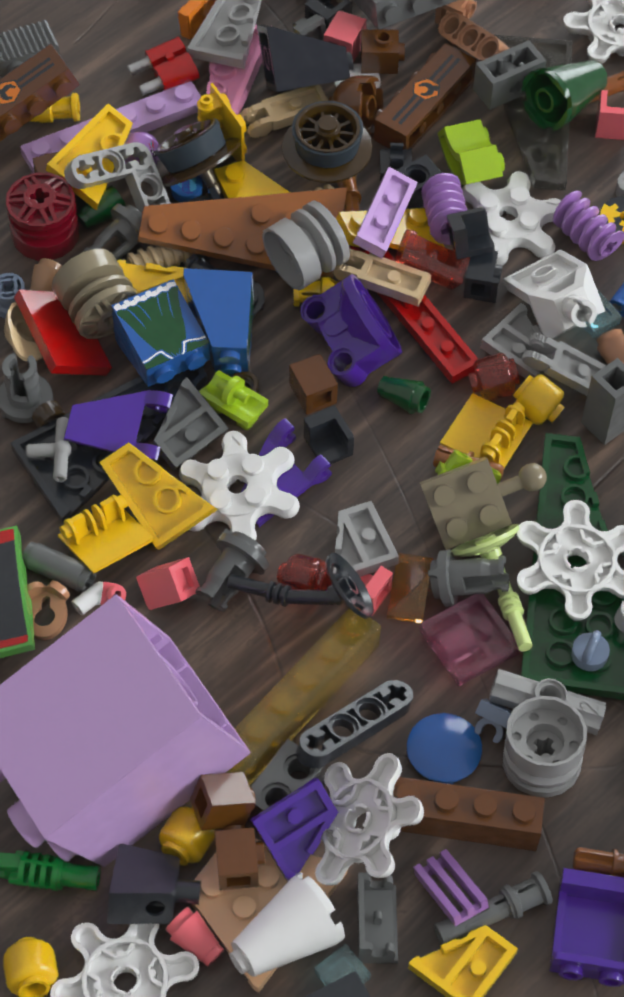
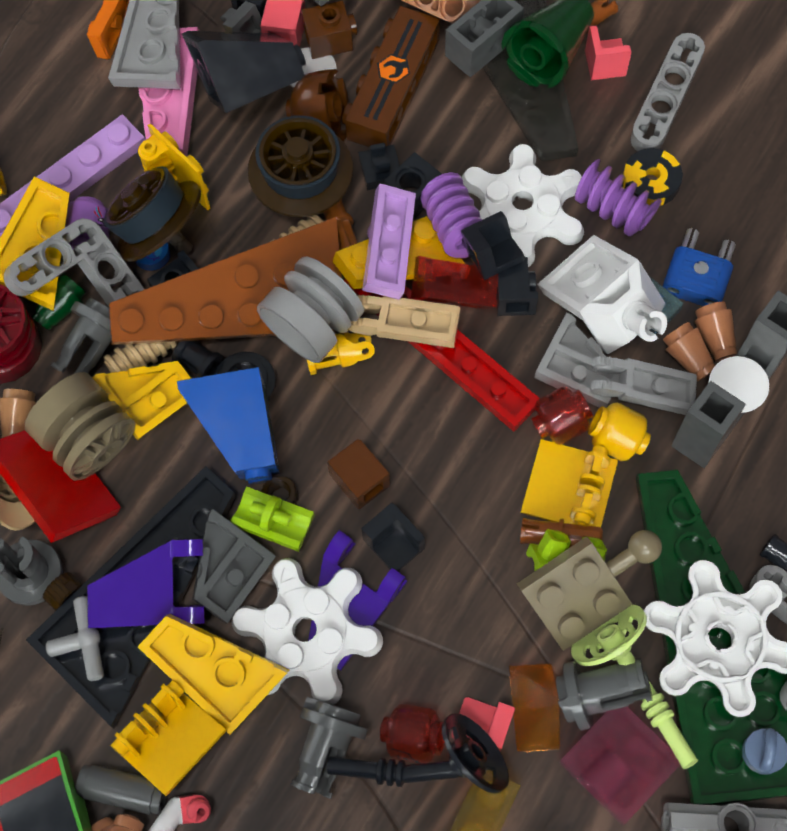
camera: 10 degrees left, 10 degrees up
(159, 333) = (169, 461): slope -> none
(168, 583) = (256, 779): coral panel -> none
(169, 64) = (93, 99): red piece -> none
(244, 180) = (222, 234): yellow wing -> none
(279, 110) = (237, 129): tan hinge -> none
(352, 329) = (388, 396): dark purple piece -> none
(364, 540) = (466, 667): light grey wing -> none
(405, 393) = (465, 459): dark green cone -> none
(471, 152) = (463, 137): lime brick -> none

